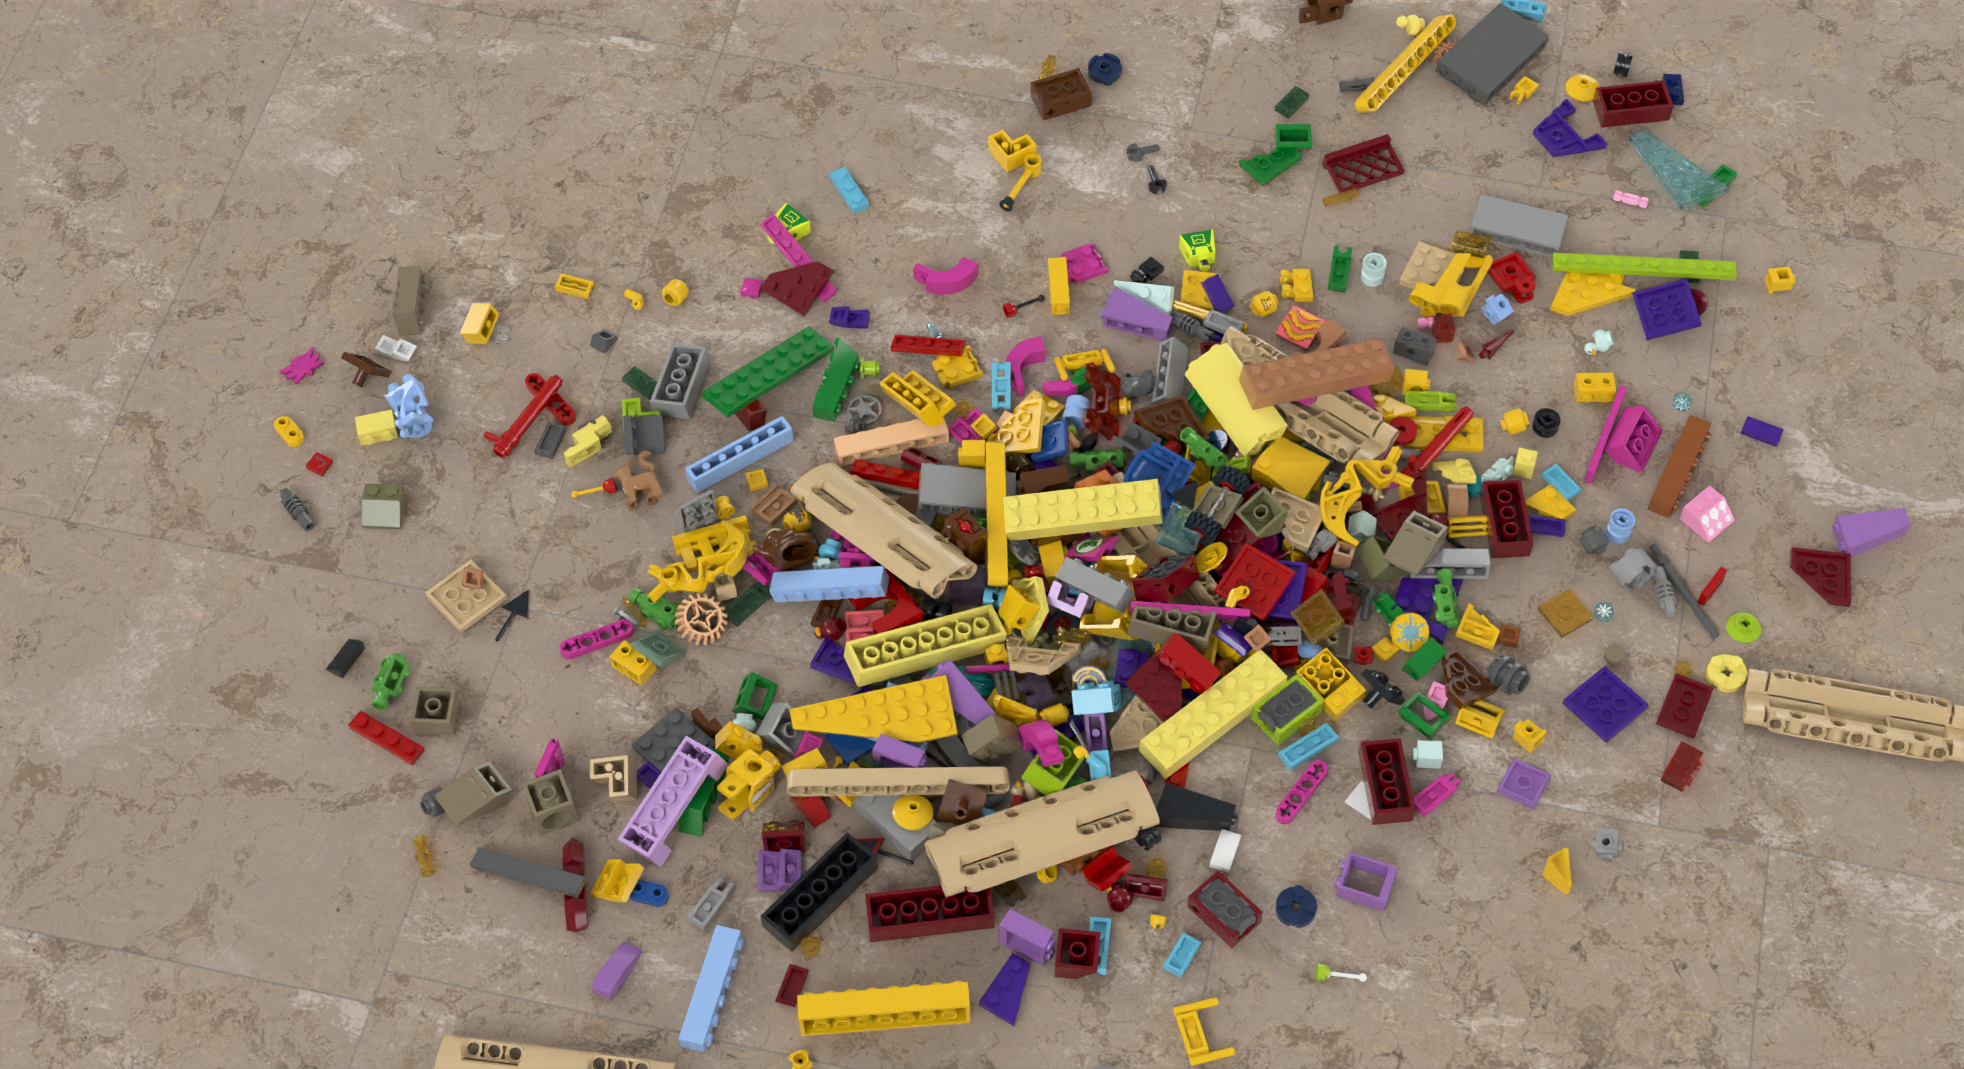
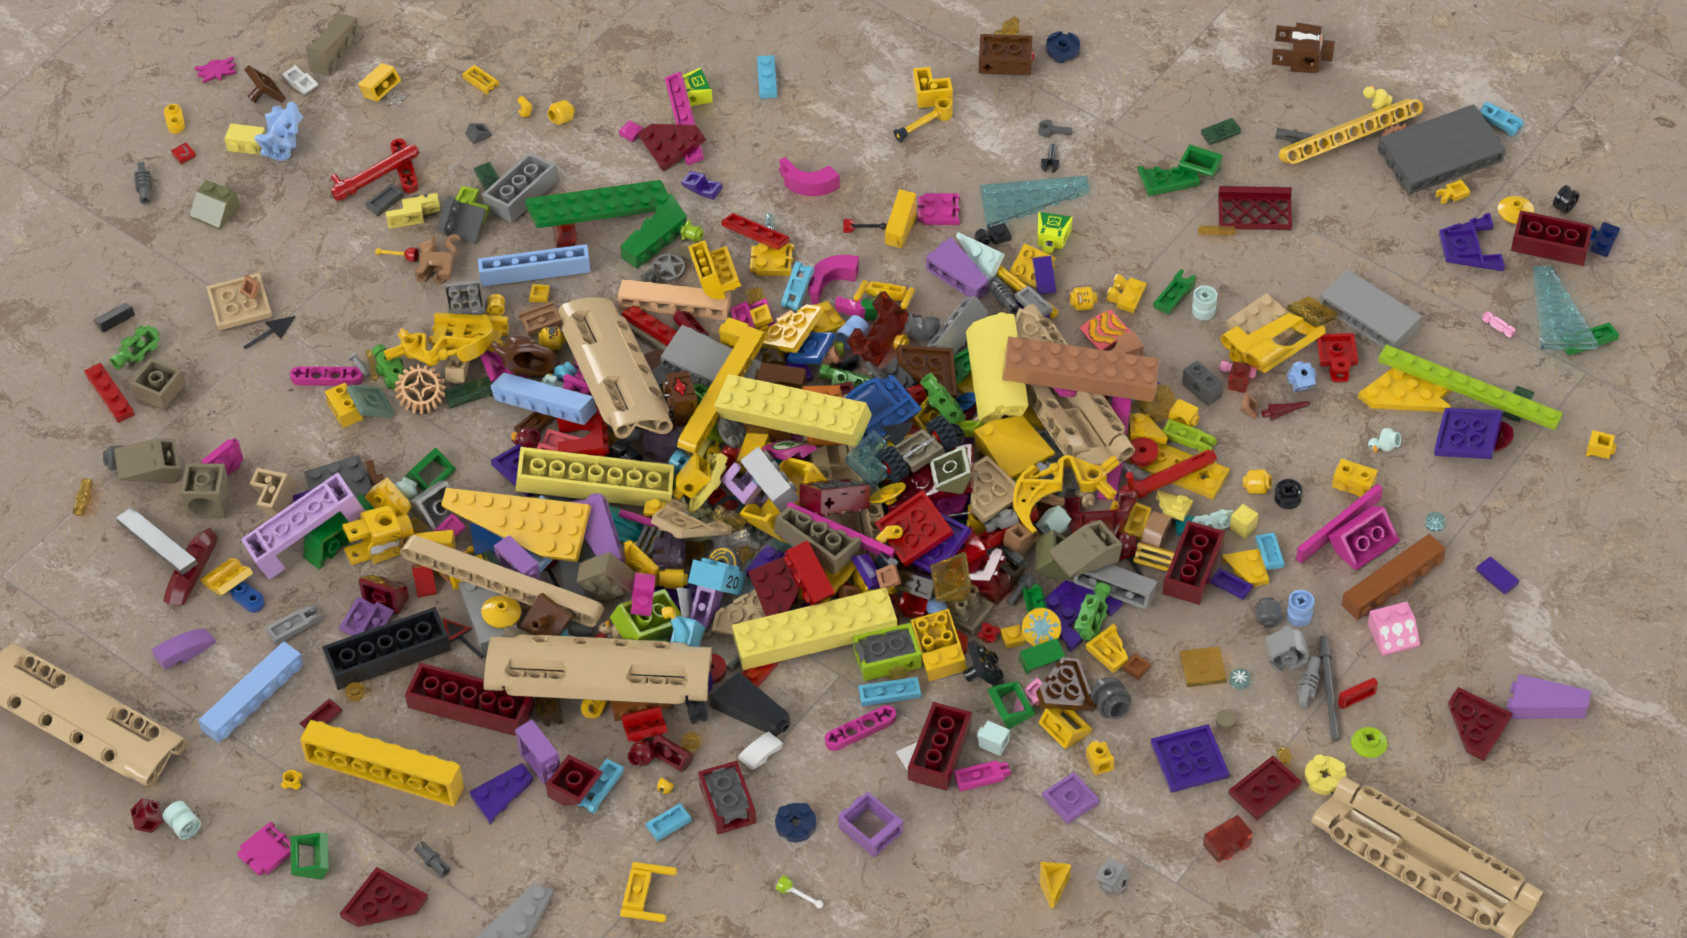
camera: 25 degrees right, 5 degrees down
(1150, 228) = (1024, 198): none -> clear light blue wing

